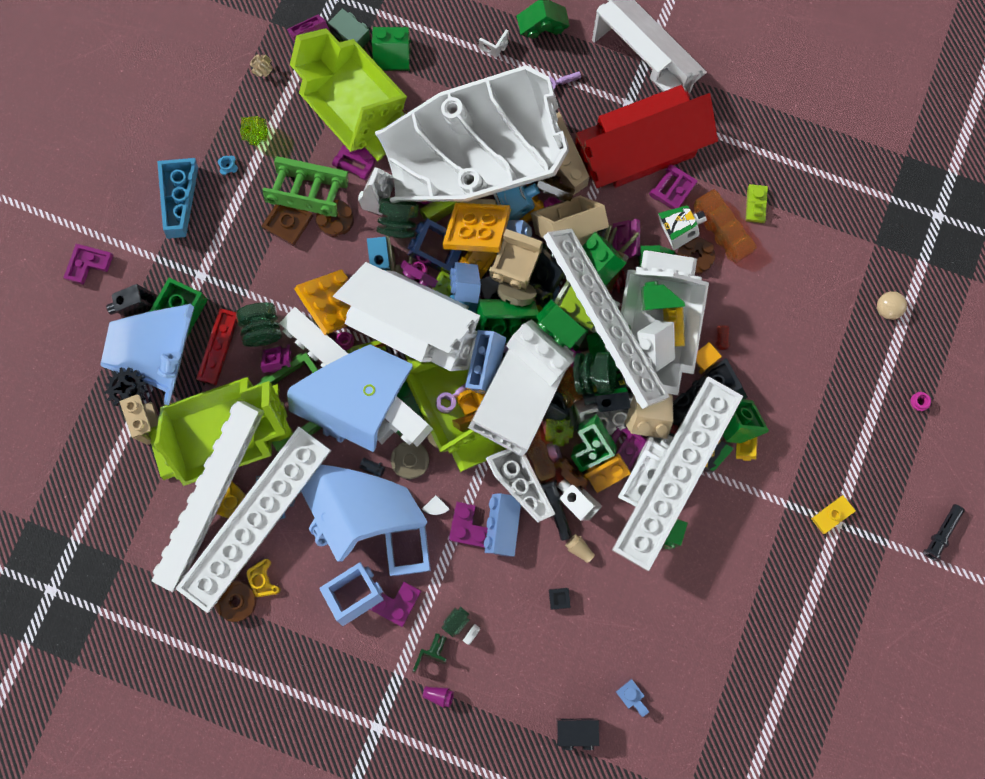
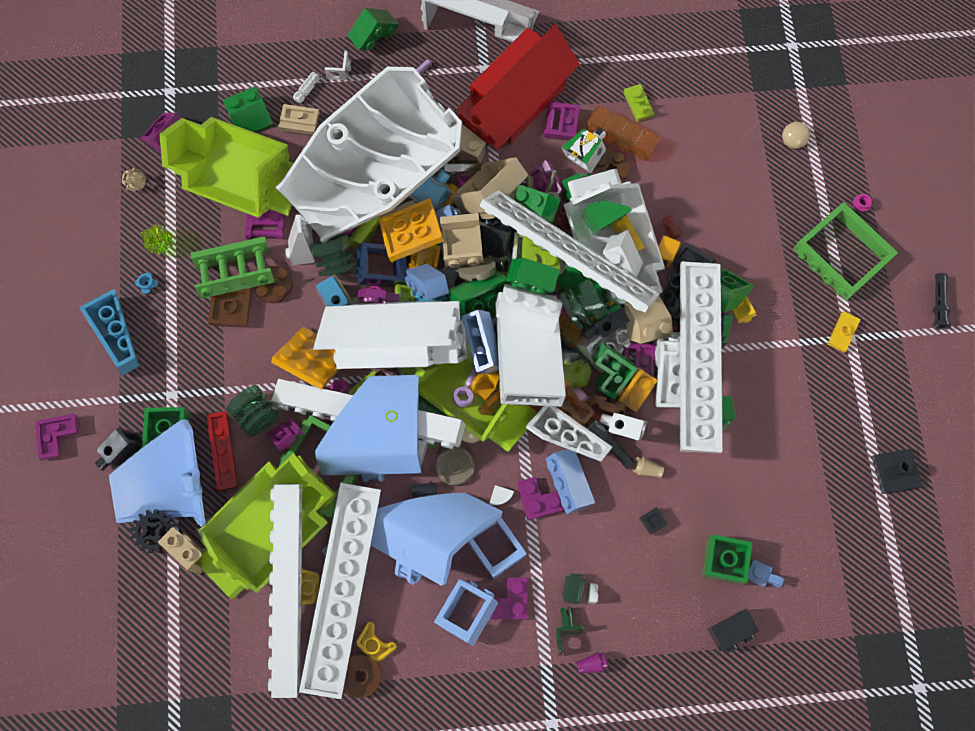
camera: 30 degrees left, 5 degrees down
(346, 27) = (199, 110): sand green brick -> none
(433, 75) = (298, 119): none -> tan plate
(455, 48) = (306, 87): none -> white axle
(606, 667) = (727, 559): none -> green brick
(810, 668) = (896, 471): none -> black tile
(905, 431) = (863, 232): none -> bright green window

